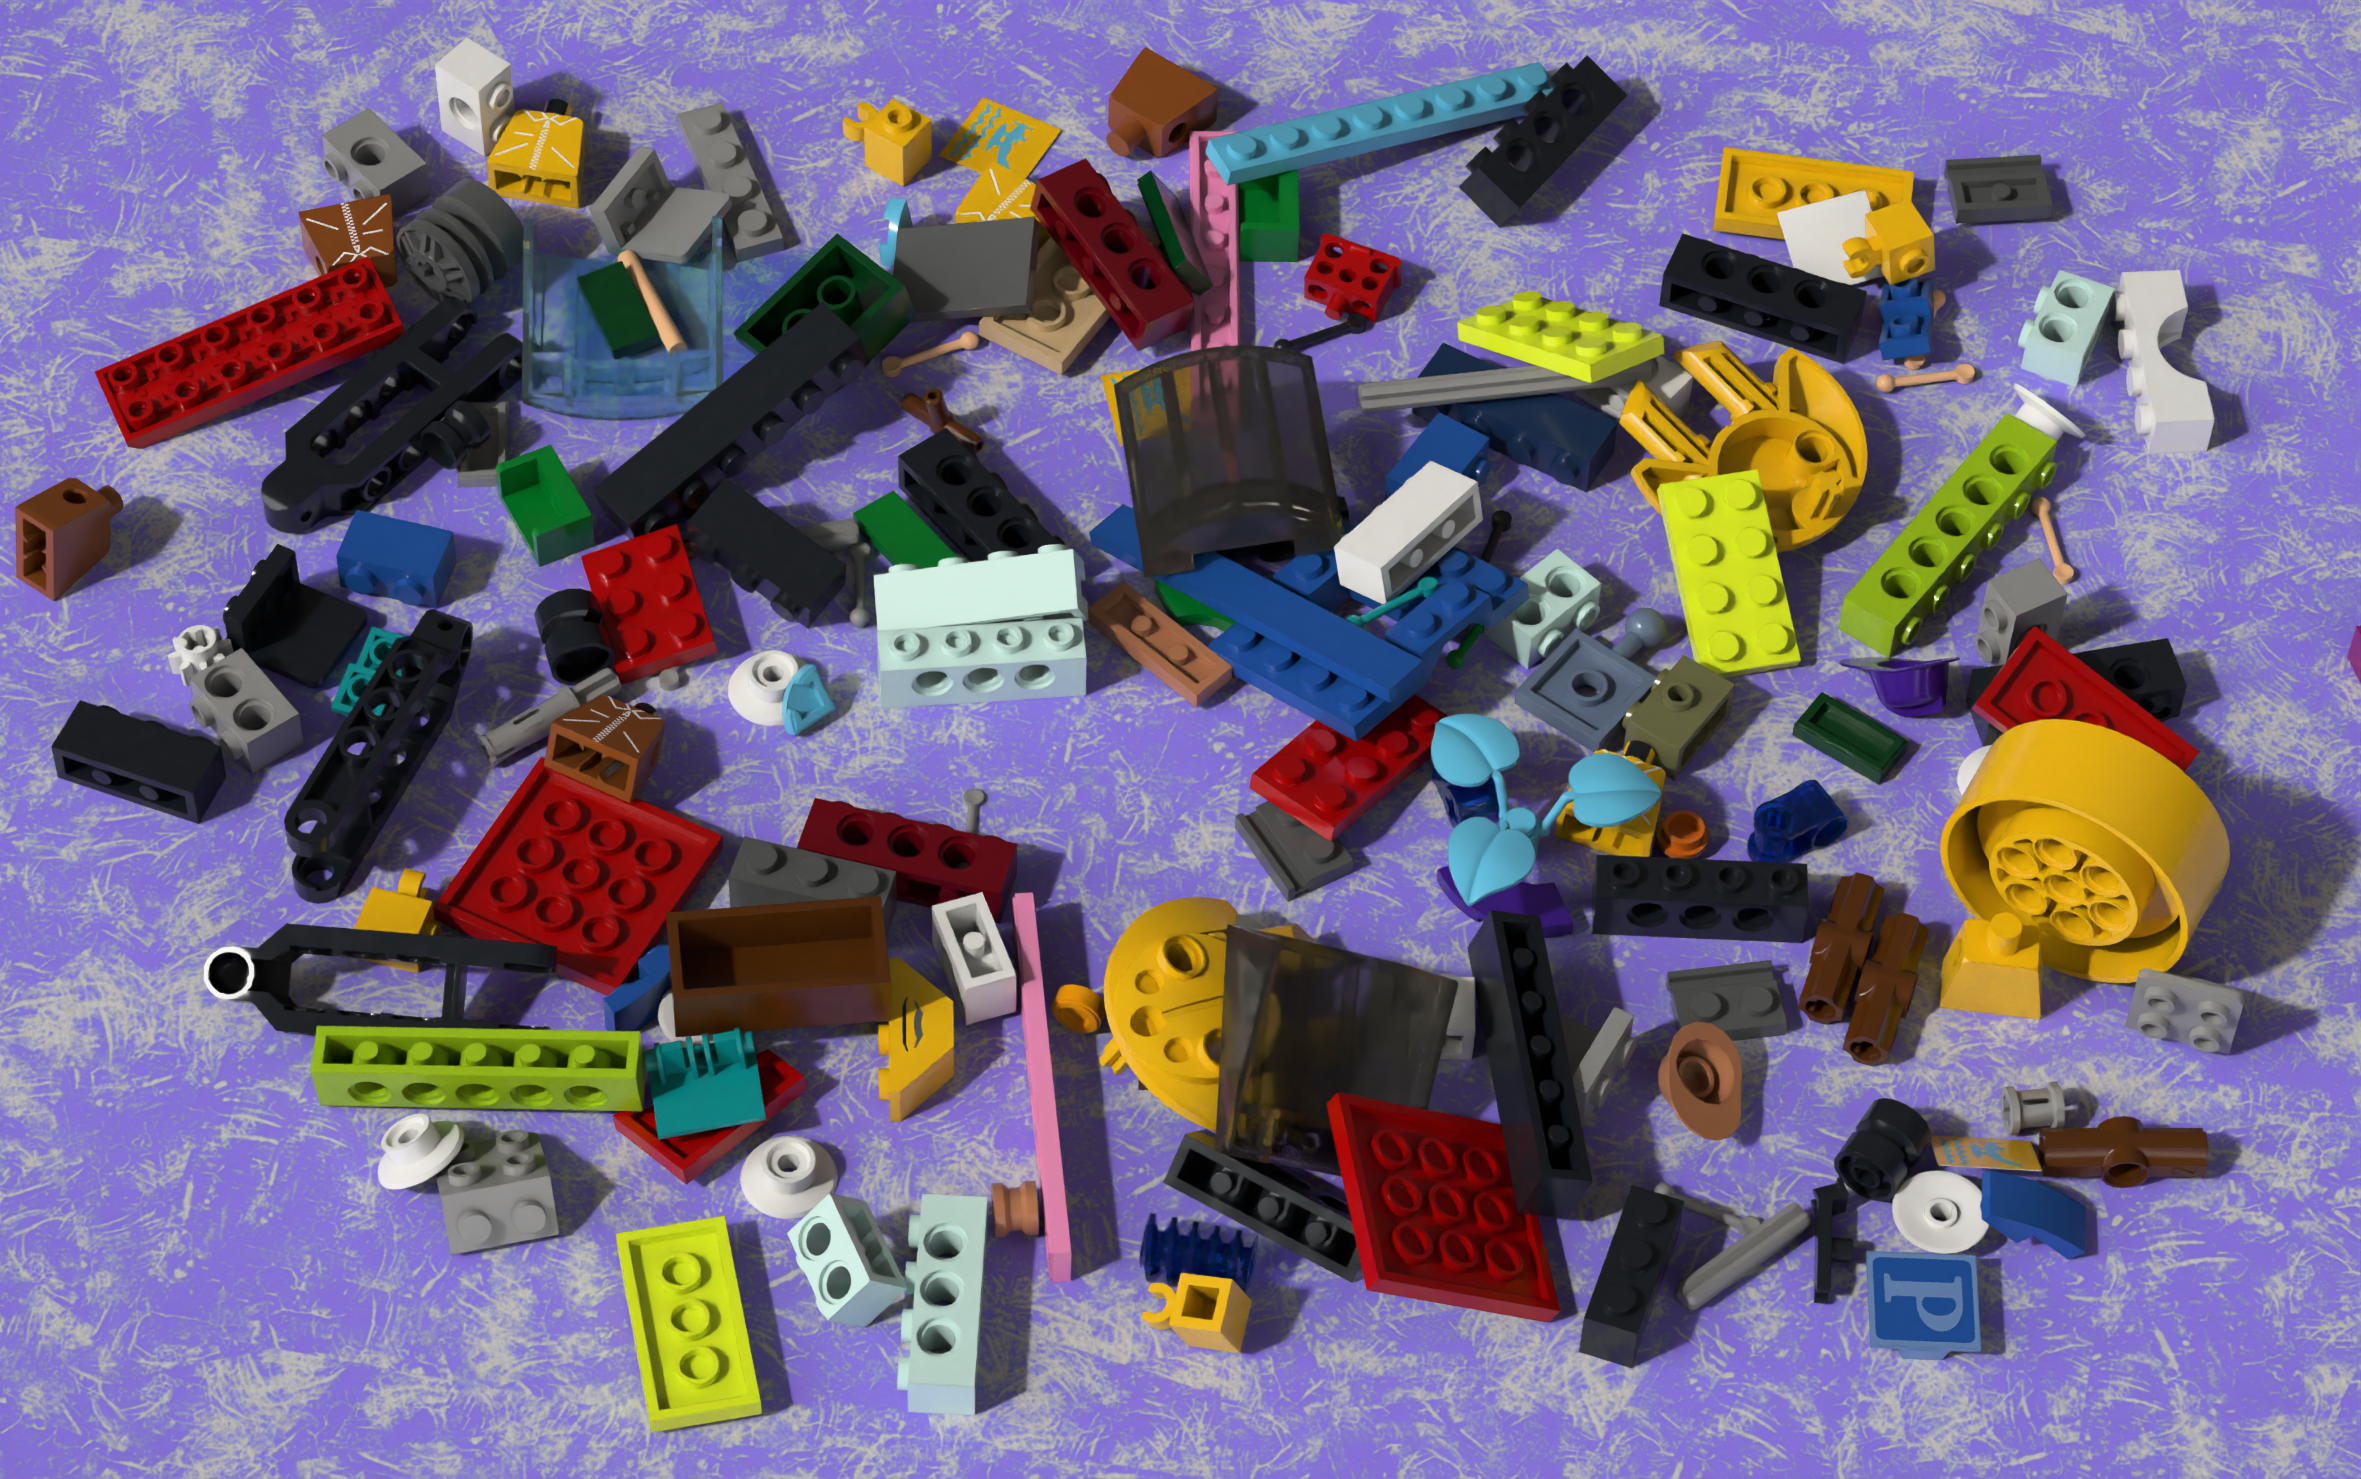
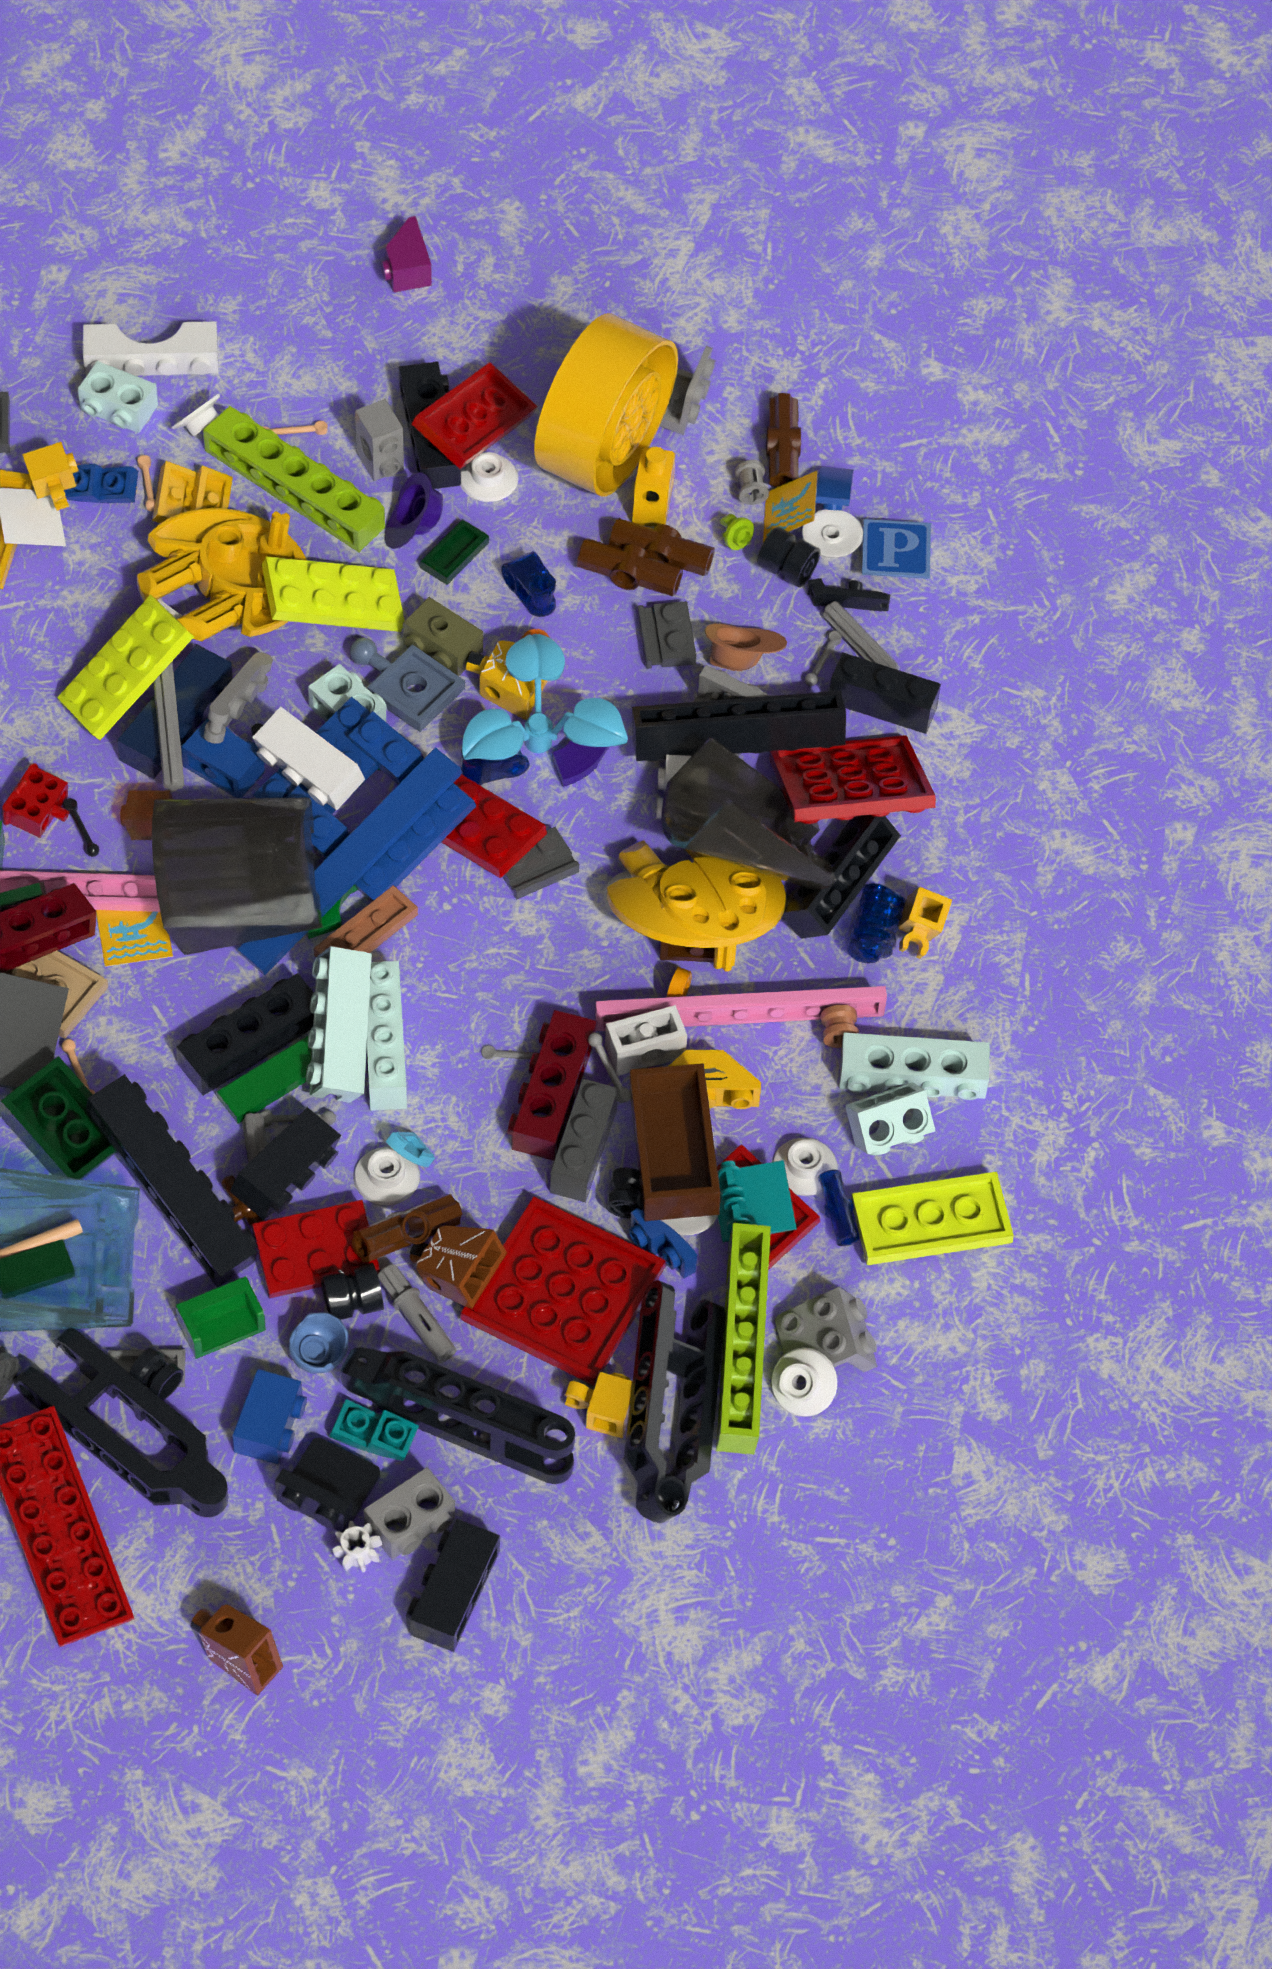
camera: 90 degrees left, 5 degrees up
(499, 605) = (318, 1343): none -> medium blue hair
(648, 664) = (390, 1233): none -> reddish brown piece
(725, 1201) = (838, 1207): none -> clear blue pin
(903, 948) = (595, 1040): none -> light grey hinge
(934, 413) = (153, 1057): reddish brown piece -> none
(1338, 392) = (138, 812): none -> clear orange brick
(1425, 588) = (355, 752): teal hinge -> none
(1527, 464) = (237, 693): none -> light grey plate
(1699, 898) = (594, 634): black brick -> none
(1762, 298) = (76, 561): black brick -> none
(1905, 422) = (188, 490): none -> yellow slope
(1927, 1086) = (738, 531): none -> lime plate

